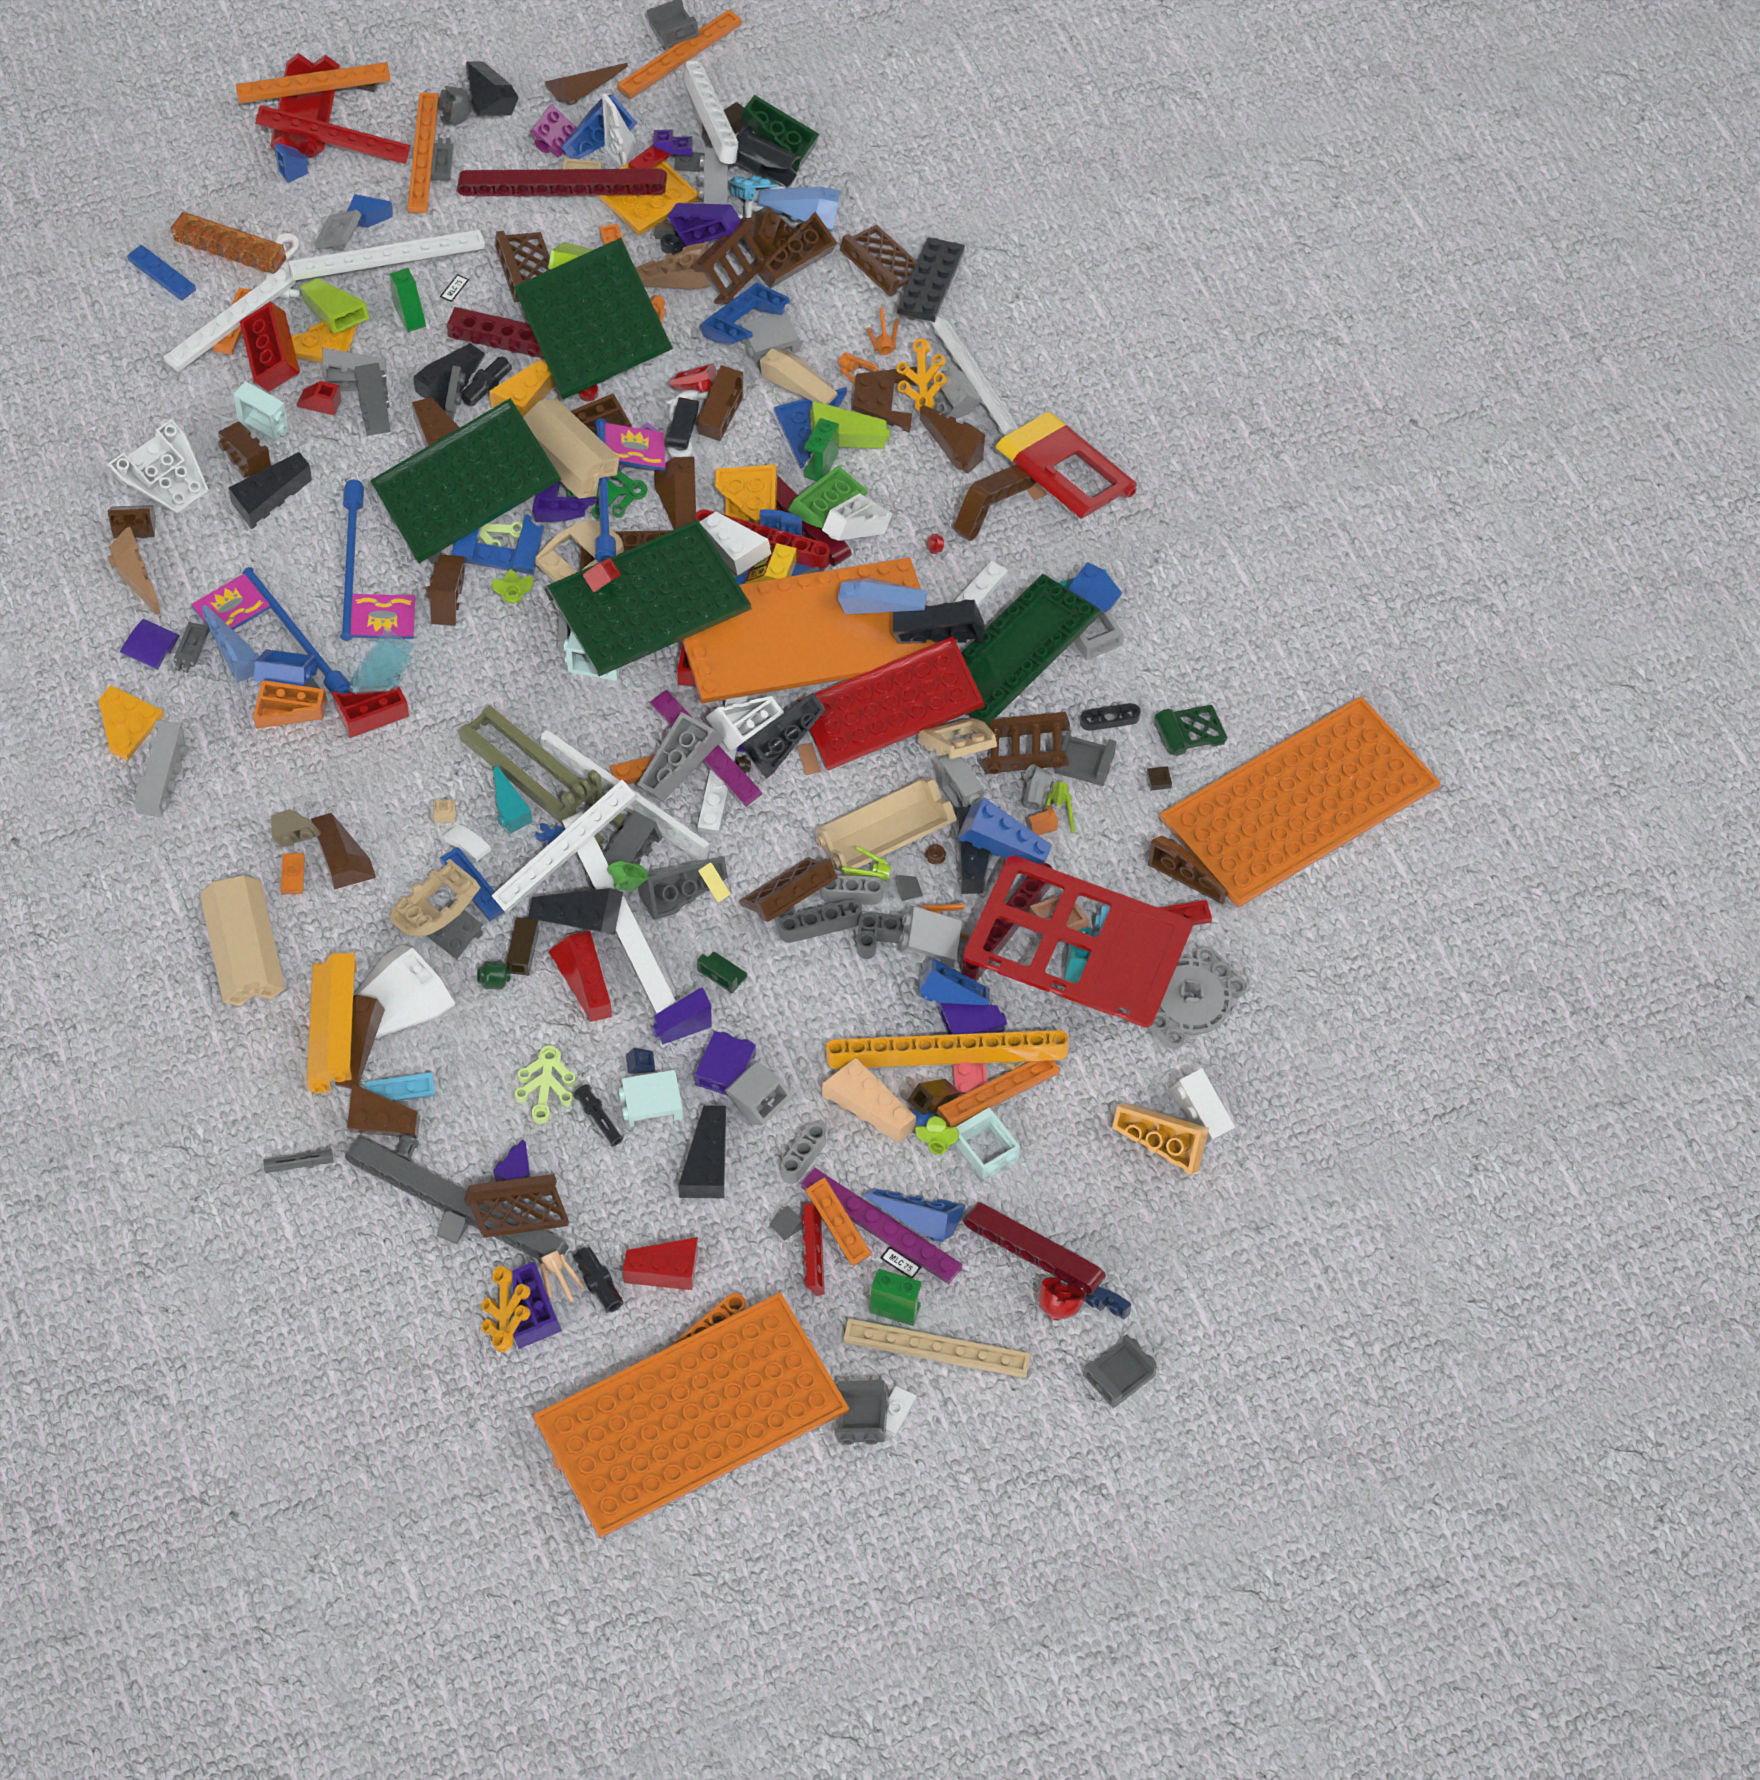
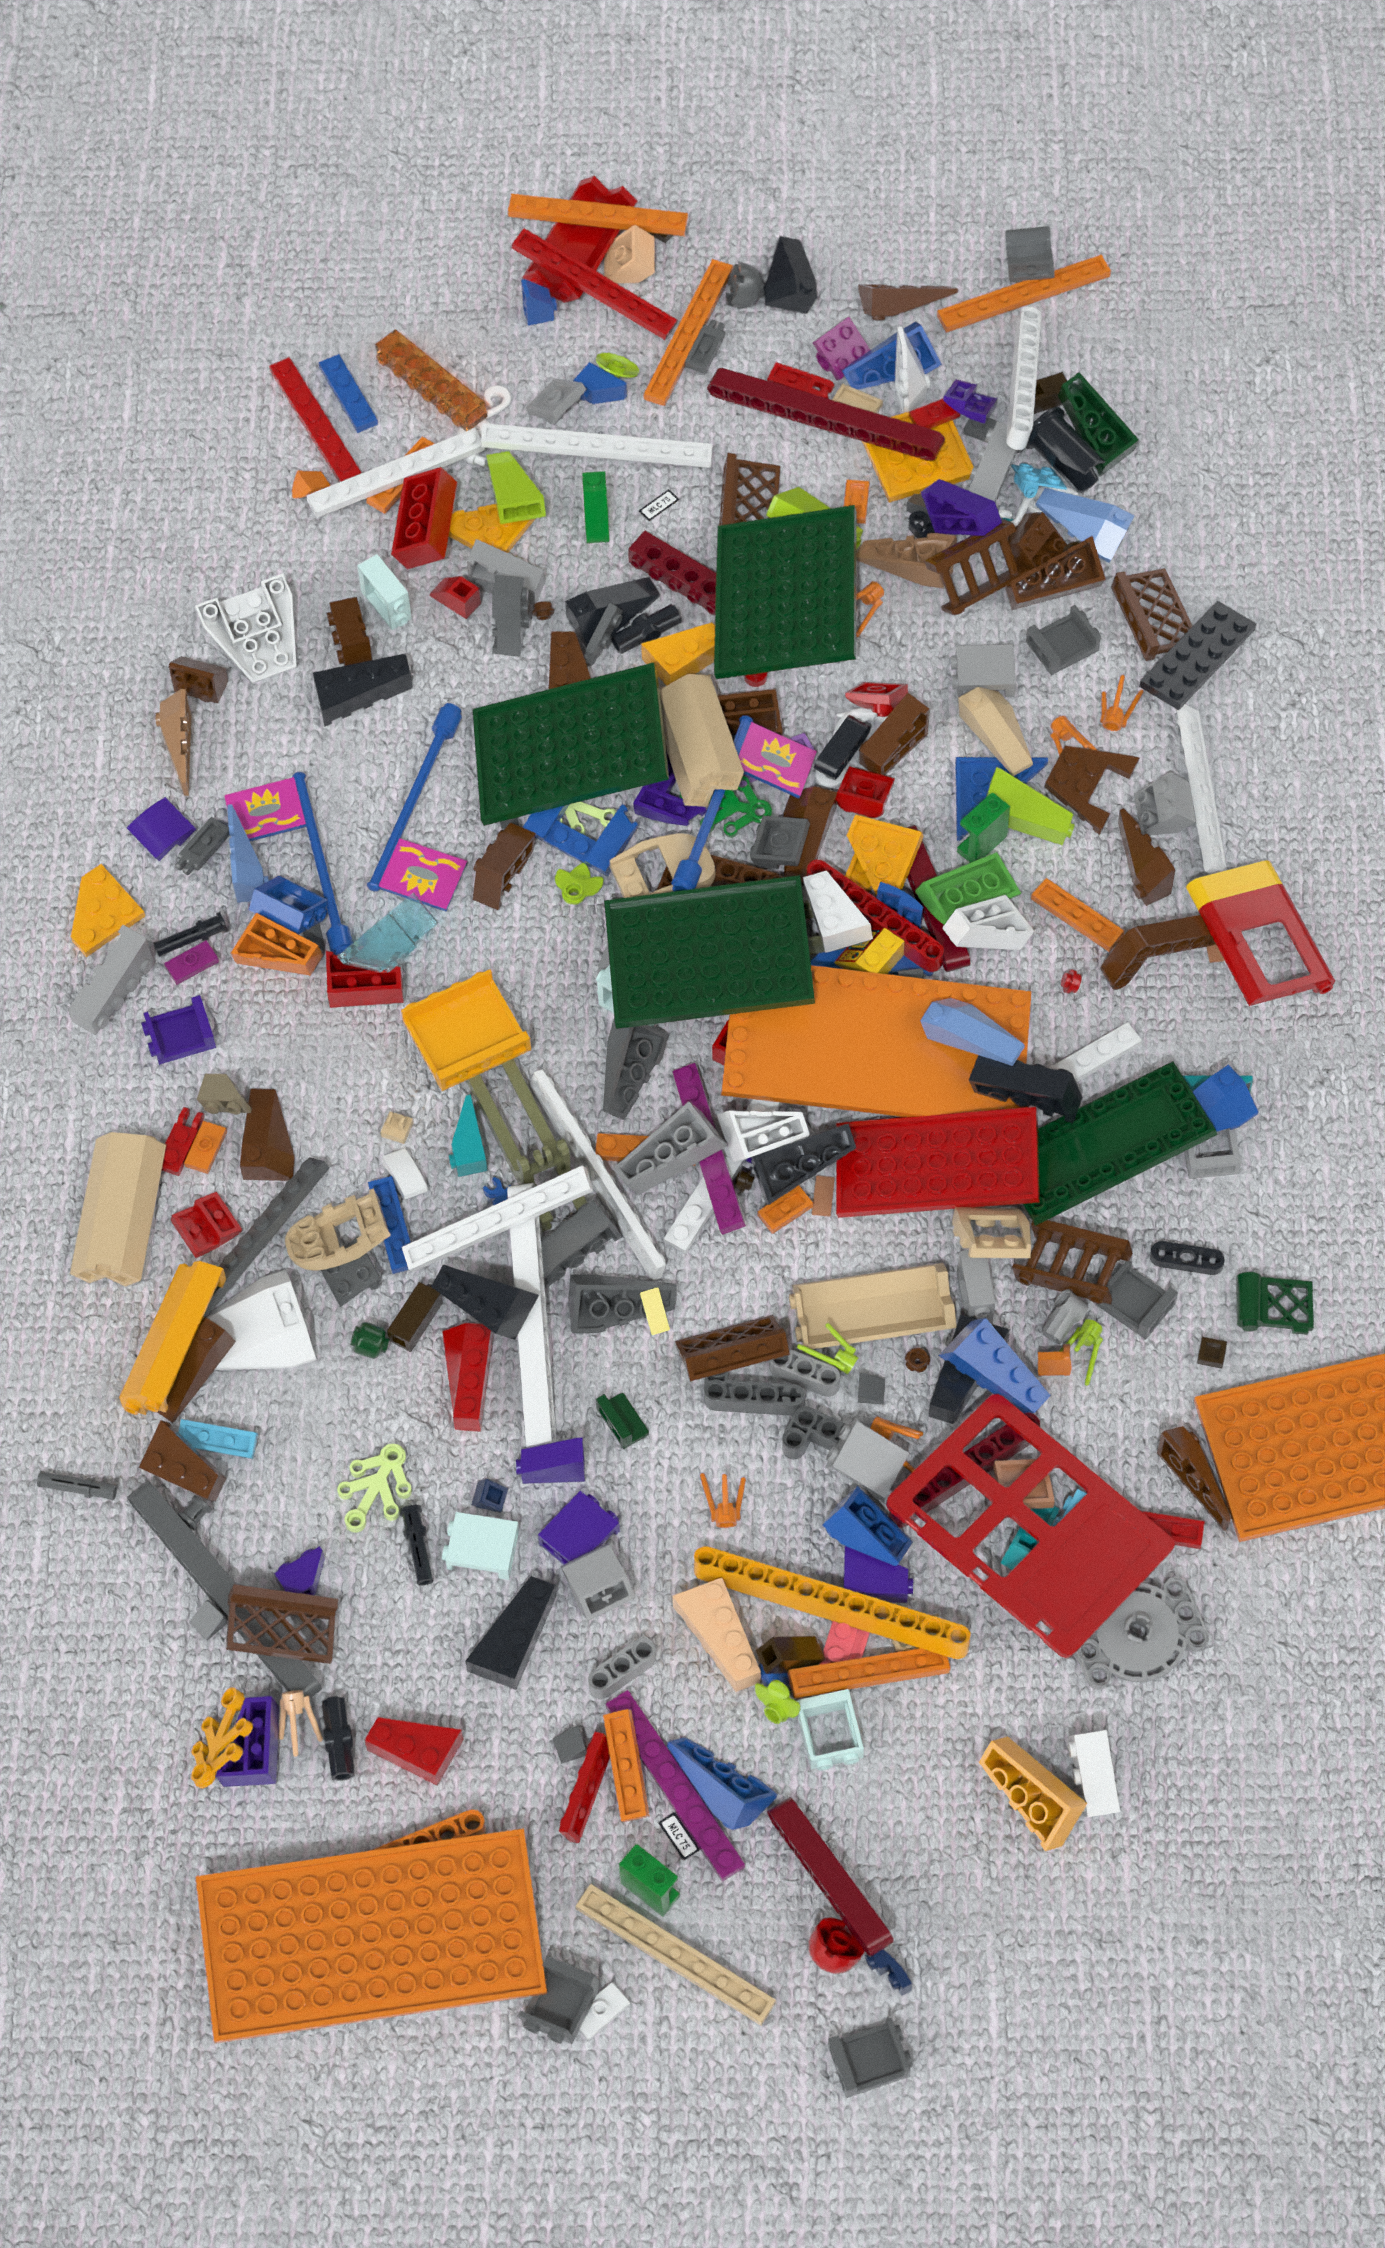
camera: 25 degrees right, 5 degrees up
(141, 300) = (314, 419): none -> red plate
(158, 348) = (307, 483): none -> orange tile
(217, 711) = (202, 930): none -> black pin
(219, 738) = (191, 962): none -> magenta plate
(233, 792) = (179, 1032): none -> dark purple panel
(270, 875) = (180, 1142): none -> red hinge
(319, 931) = (206, 1224): none -> red slope
(352, 107) = (630, 257): none -> light nougat slope
(373, 909) = (268, 1224): none -> dark grey plate
(376, 191) = (617, 365): none -> lime dish
(395, 391) = (543, 610): none -> reddish brown plate
(471, 719) = (465, 1030): none -> light orange panel
(529, 162) = (800, 380): none -> red plate
(601, 574) = (665, 909): panel -> none
(613, 702) = (629, 1061): none -> dark grey wedge
(627, 875) = (553, 1276): bright green piece -> none
(663, 506) = (779, 841): none -> dark grey plate
(713, 452) = (864, 792): none -> red slope
(721, 325) = (991, 618): blue wedge -> none
(784, 776) = (785, 1209): none -> orange plate
(821, 298) = (1064, 641): none -> dark grey panel
(835, 1013) = (725, 1515): none -> orange plant
(919, 494) = (1077, 915): none -> orange plate
(923, 376) = (1138, 774): light orange plant -> none

